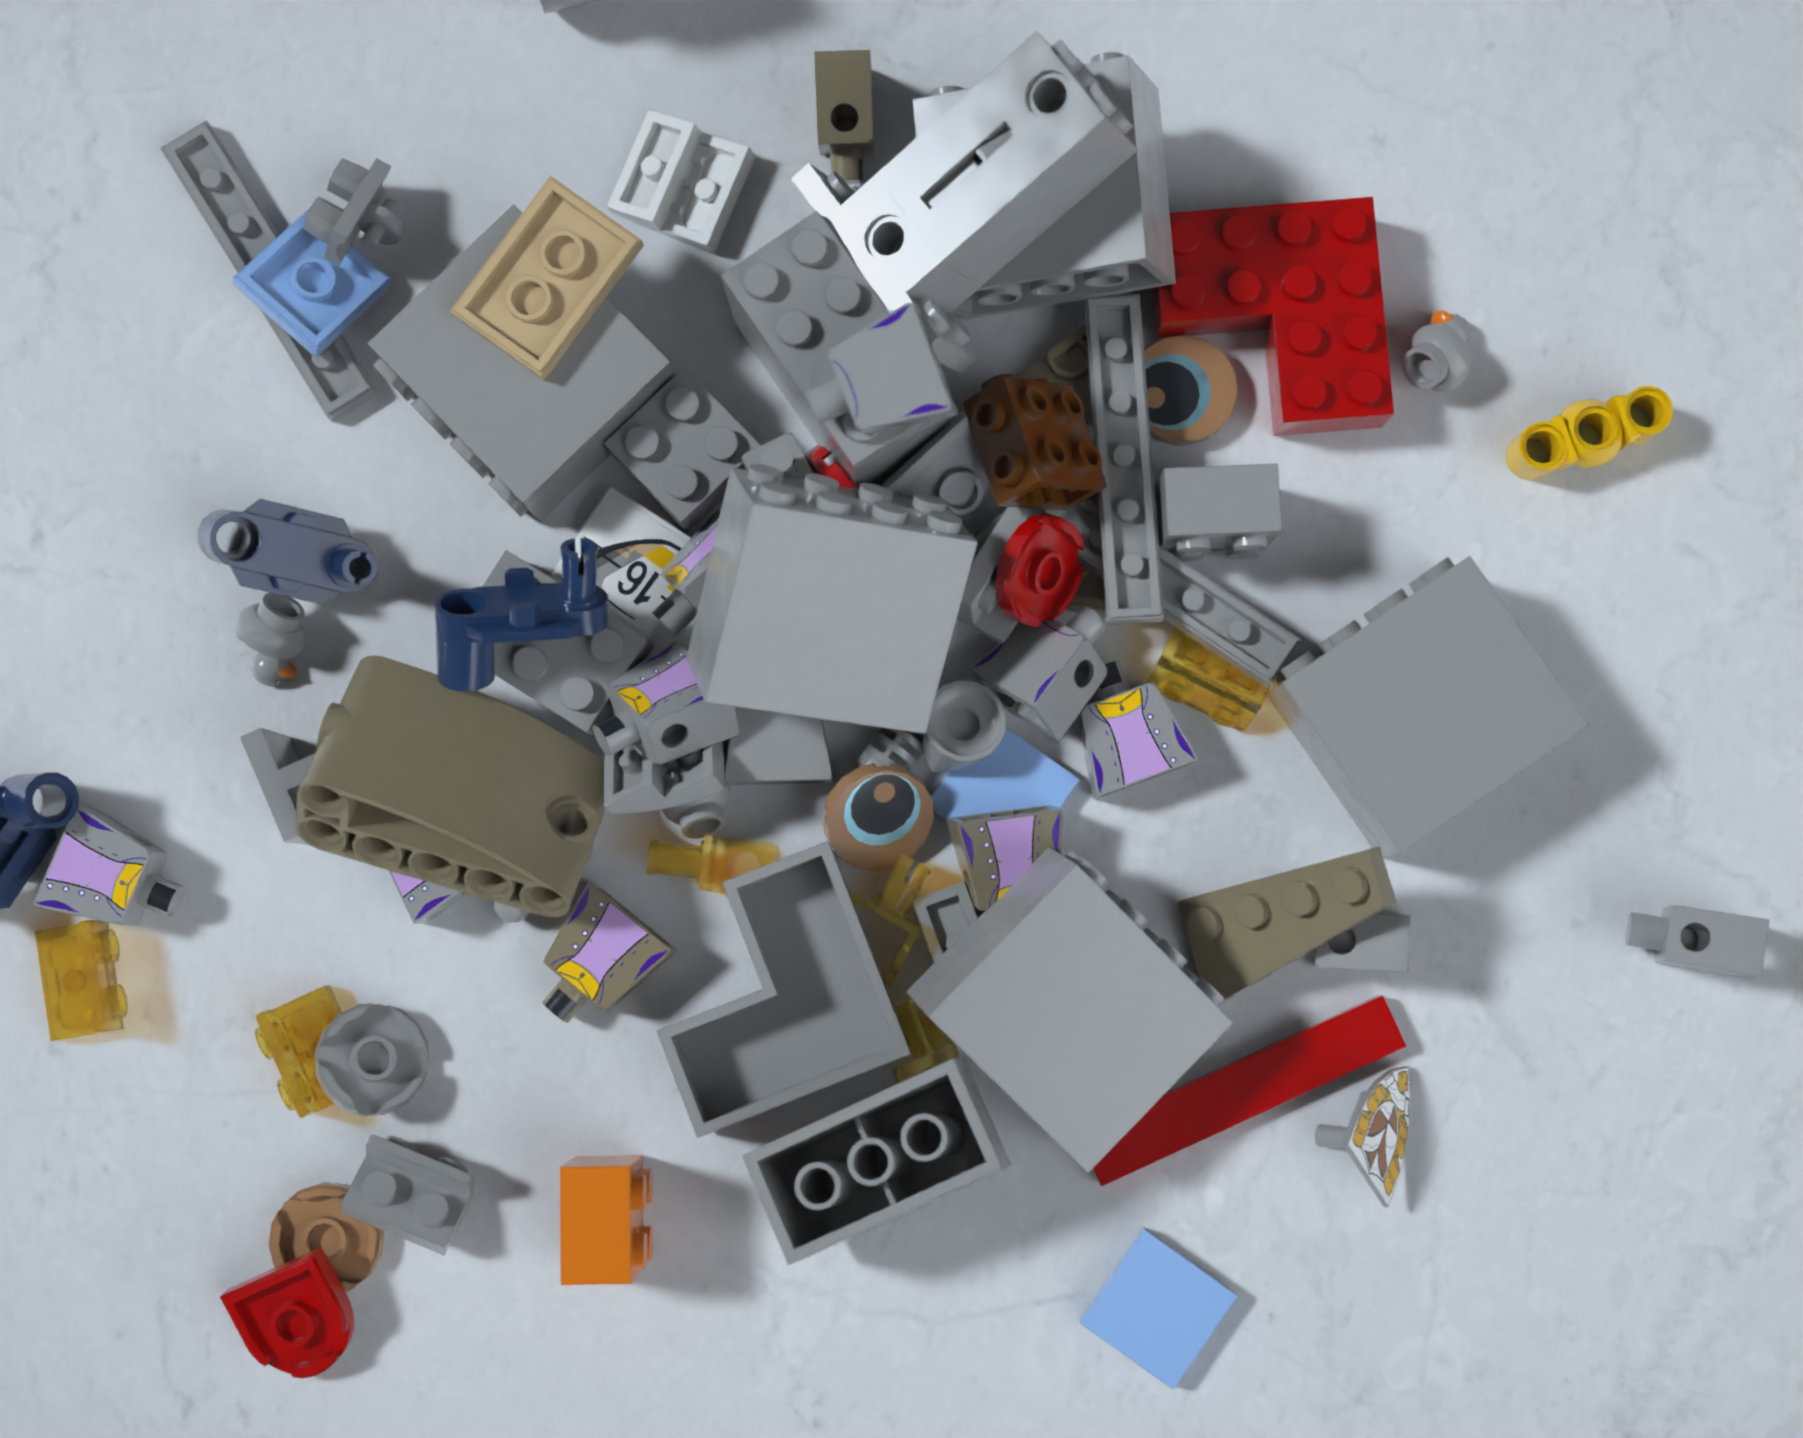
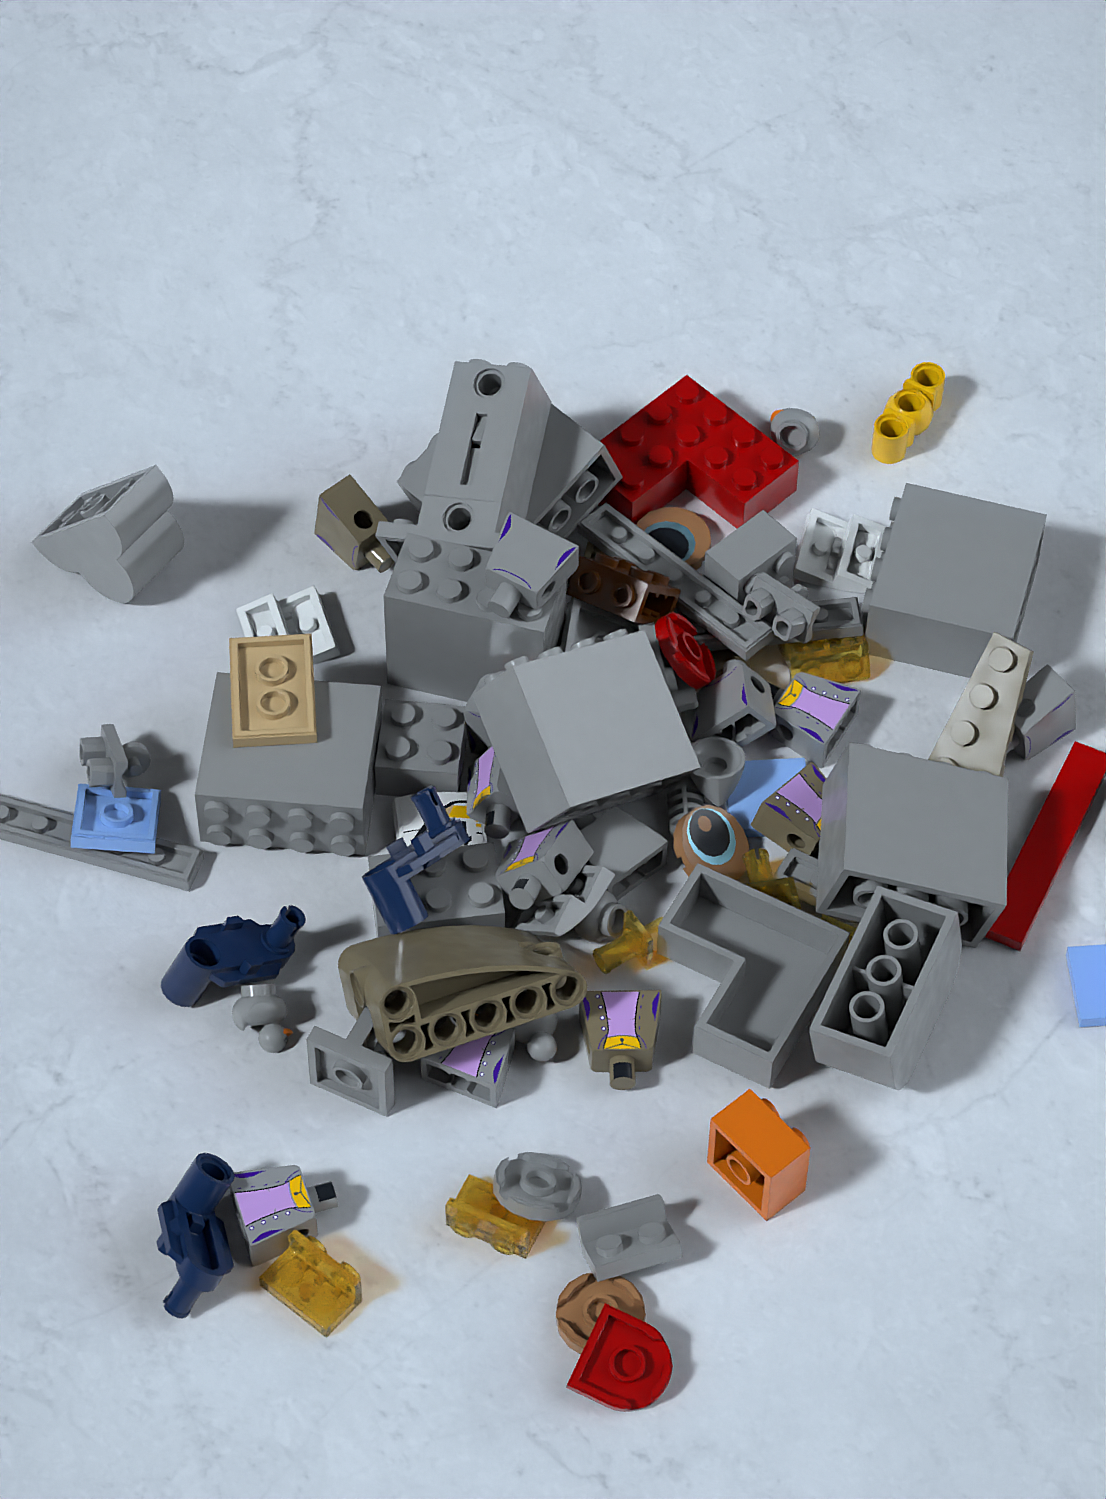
camera: 45 degrees left, 30 degrees down
(1198, 600) = (781, 606): none -> light grey hips
(1352, 551) = (838, 552): none -> white slope

